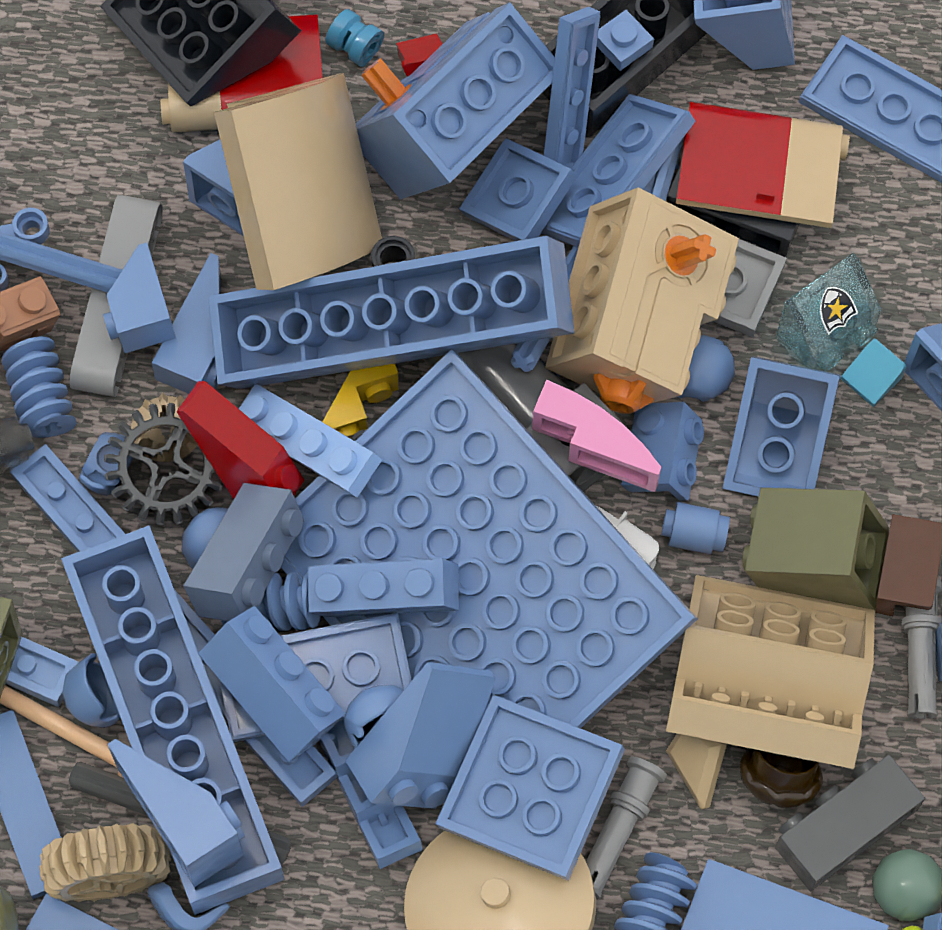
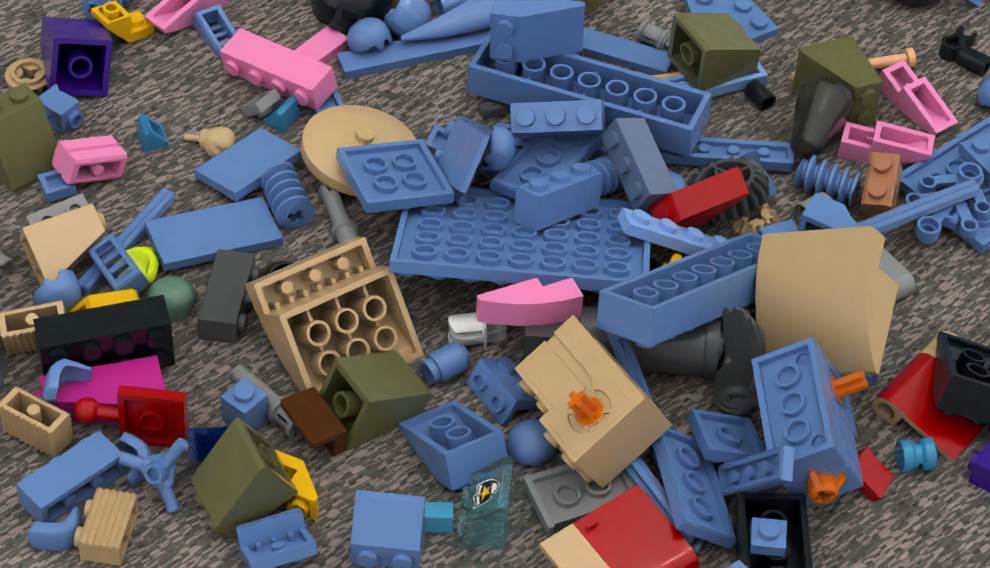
camera: 135 degrees right, 20 degrees down
(440, 223) = (735, 384): none -> dark grey hair

